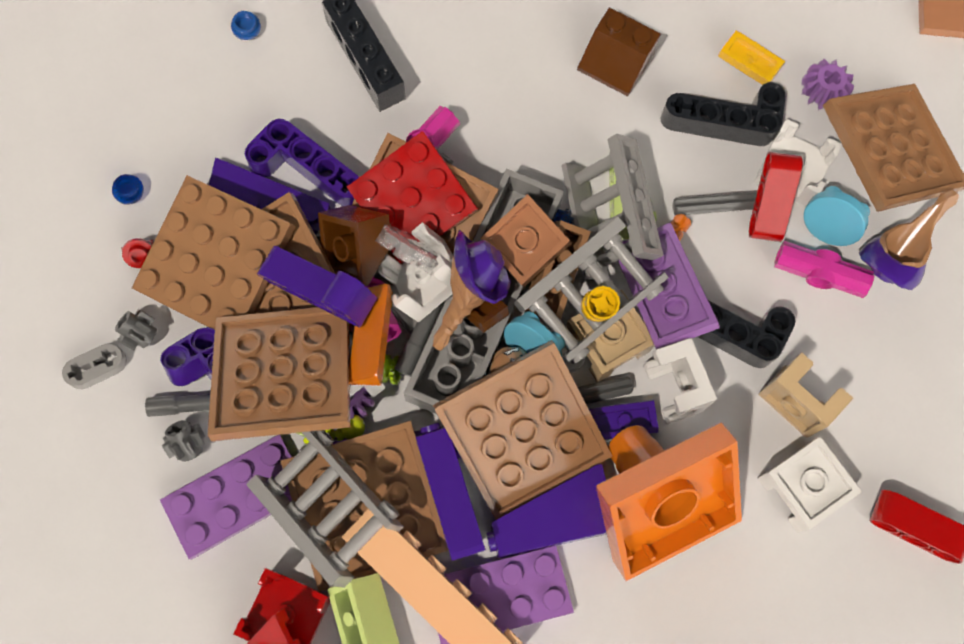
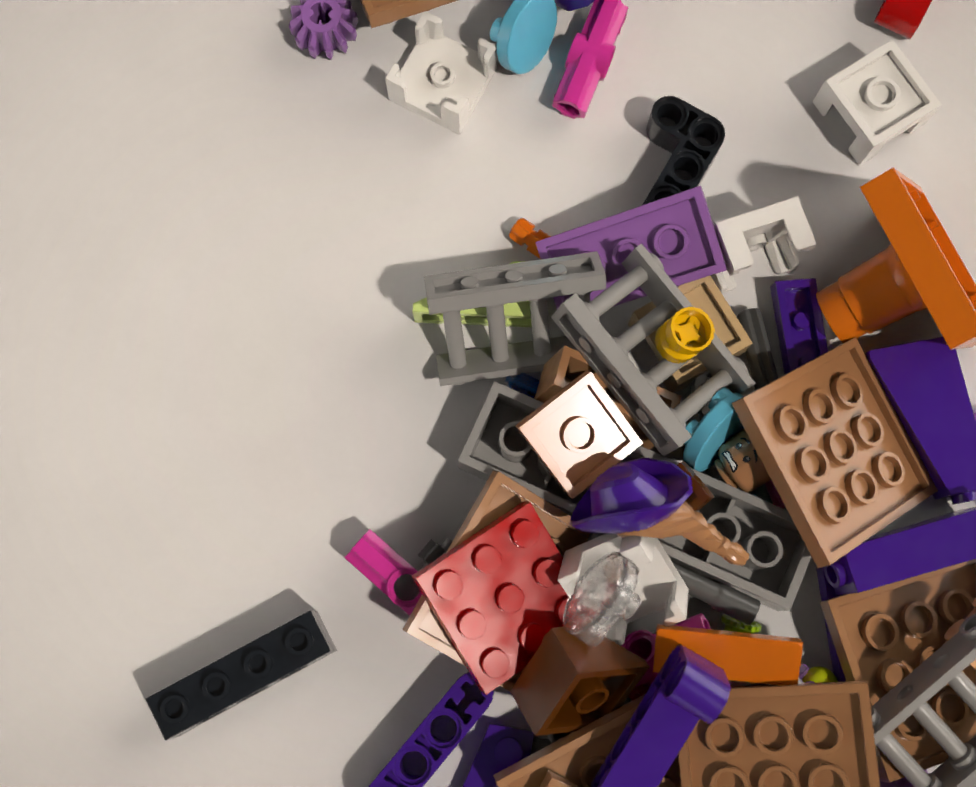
camera: 85 degrees left, 5 degrees up
(619, 51) = (261, 297): reddish brown slope -> none
(714, 203) = (493, 182): dark grey axle -> none
(721, 114) = (365, 165): black beam -> none
(751, 58) = (277, 118): yellow plate -> none
(775, 196) = (498, 103): beam -> none
(797, 404) = (775, 98): tan panel -> none

